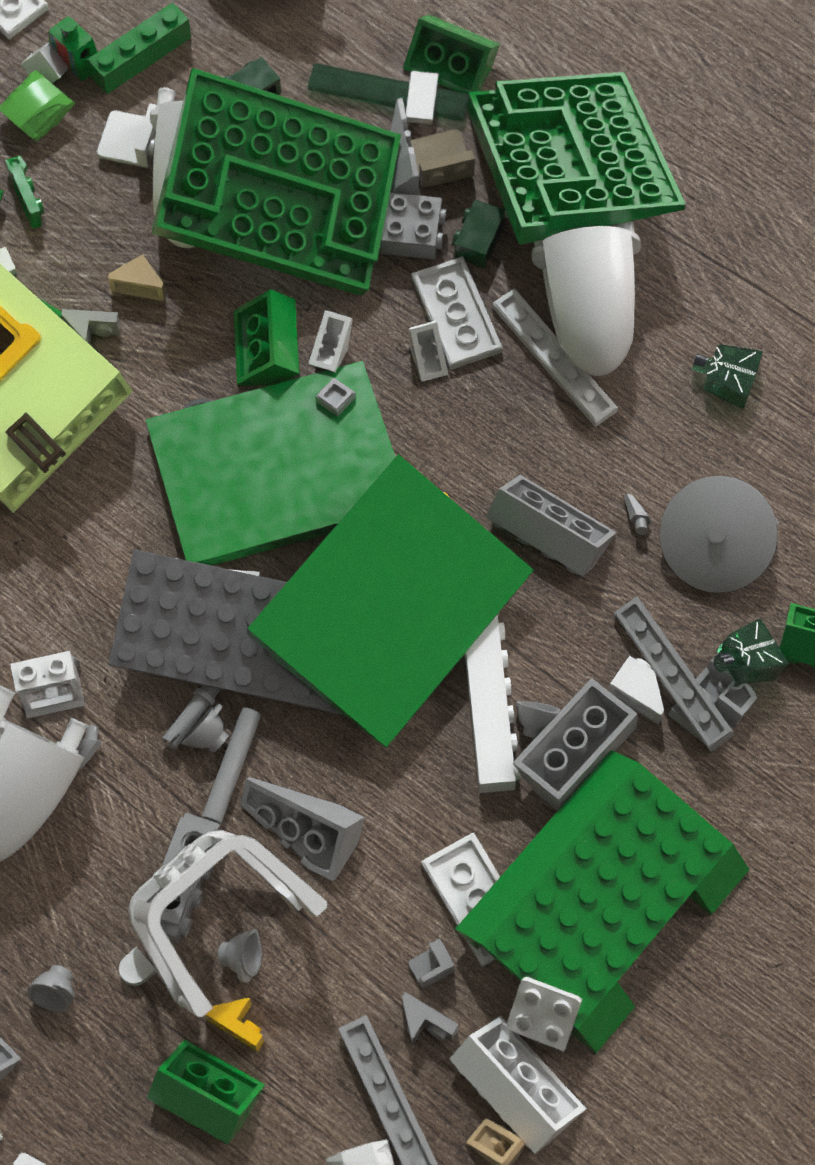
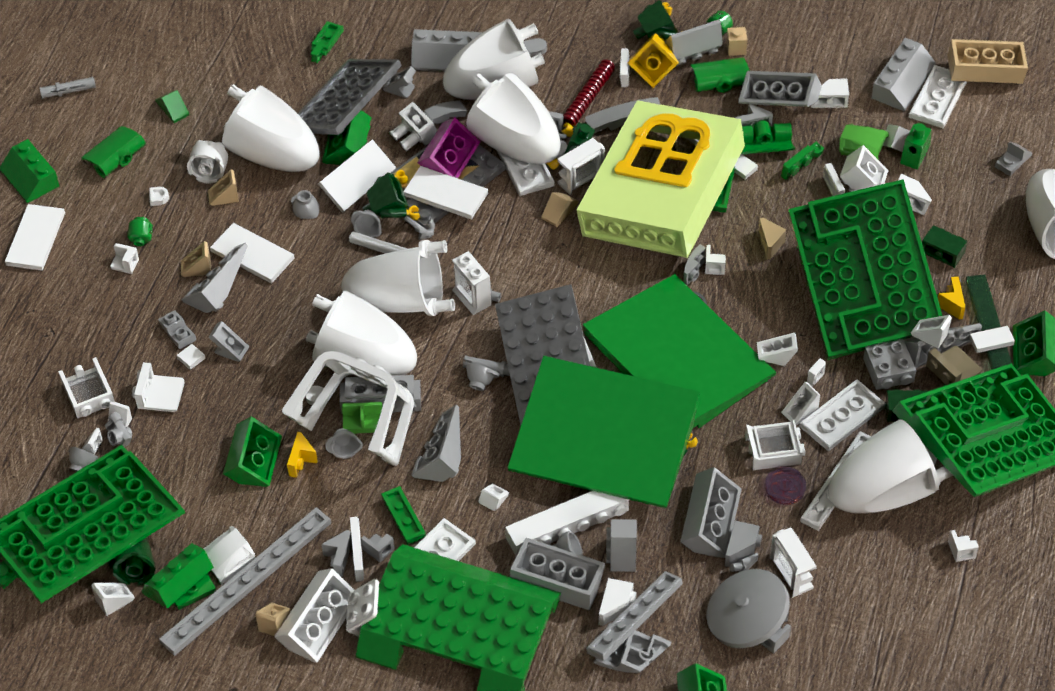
camera: 70 degrees right, 15 degrees down
(51, 458) = (620, 211): dark brown tile -> none
(53, 989) = (286, 357): light grey piece -> none
(84, 168) = (832, 180): none -> white tile
(86, 126) = (862, 170): none -> white slope
(87, 870) = (362, 332): none -> white windscreen
(89, 745) = (445, 323): light grey bar -> none
(92, 322) = (724, 223): light grey slope -> none
(139, 48) = (939, 179): green brick -> none
(142, 392) = (692, 265): none -> light grey slope
(143, 86) = (917, 195): none -> white slope
(144, 364) = (714, 263): none -> white panel
(209, 916) = (361, 416): none -> bright green panel
(231, 765) = (464, 398): light grey piece -> none
(266, 340) = (764, 318): green slope -> none
(335, 397) = (739, 363): light grey tile -> none
(338, 105) = (953, 300): none -> yellow slope
(382, 314) = (816, 372): none -> white tile
(395, 913) = (403, 515): none -> green plate
(409, 785) = (493, 497): none -> white slope
(411, 147) = (932, 330): none -> white slope
(429, 994) = (357, 549): none -> white tile
(475, 406) = (775, 445): none -> white window
(537, 421) = (785, 485): none -> clear purple tile
(567, 644) = (622, 545): none -> light grey wedge
(608, 505) = (743, 542): none -> light grey slope
(668, 454) = (792, 561): none -> white window
(706, 263) = (962, 547): none -> white panel
(729, 372) = (881, 585): clear green torso -> none
(750, 655) = (667, 654): clear green torso -> none

